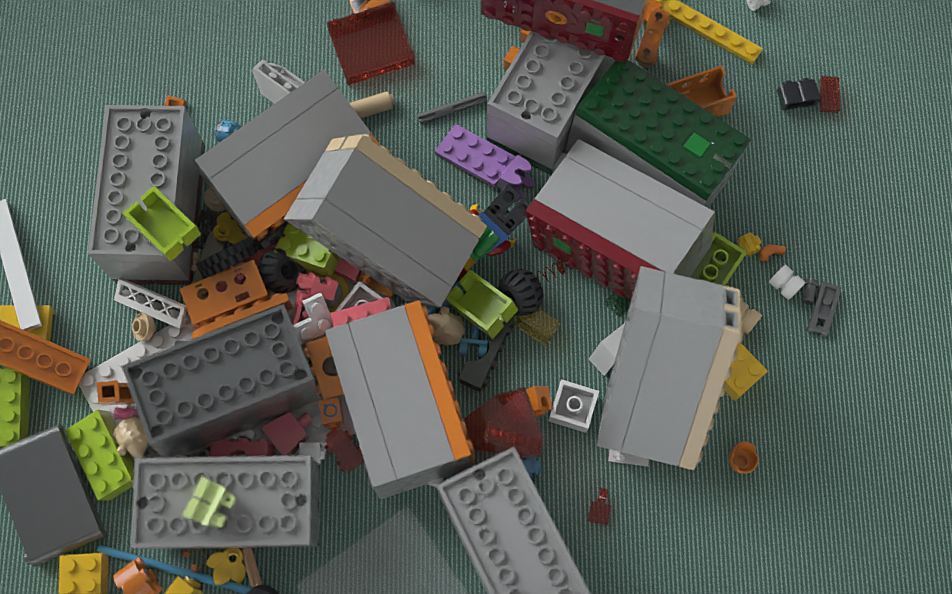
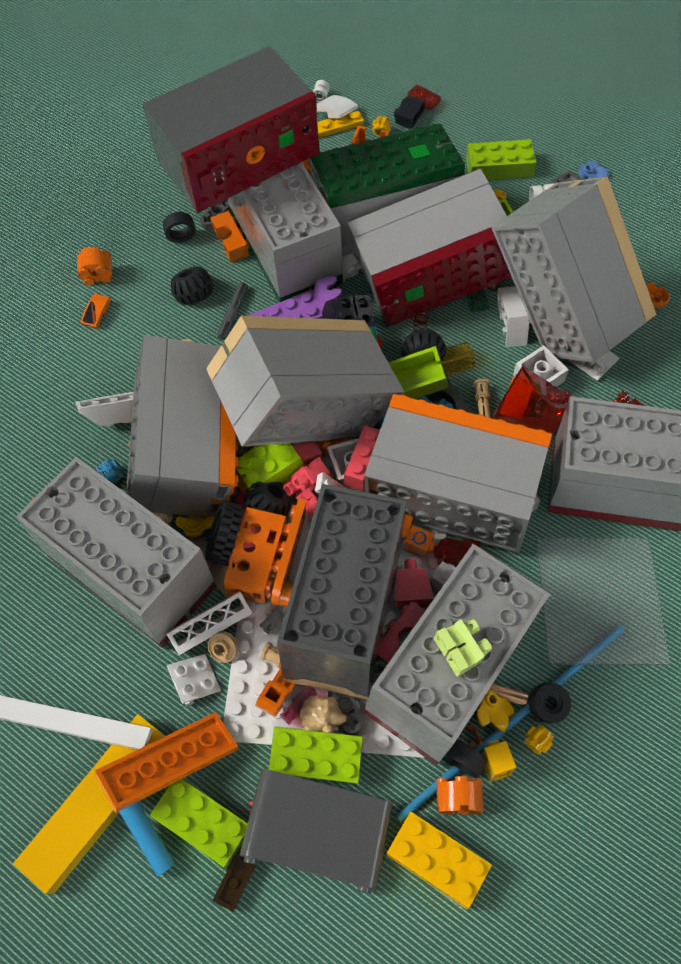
camera: 50 degrees left, 10 degrees down
(106, 324) = (193, 679): none -> white hinge
(162, 223) = (171, 529): lime piece -> none
(166, 567) = (466, 759): none -> black tyre
(370, 43) = (122, 328): clear red panel -> none
(449, 57) = (191, 285): none -> black wheel
(514, 373) = (482, 397): none -> tan pin
(748, 26) = (336, 106): none -> white slope
(756, 82) = (379, 124): none -> yellow gear
(771, 249) = (511, 193): orange arm -> none
(801, 216) = (502, 159): none -> lime brick
(862, 313) = (592, 170): none -> medium blue plate

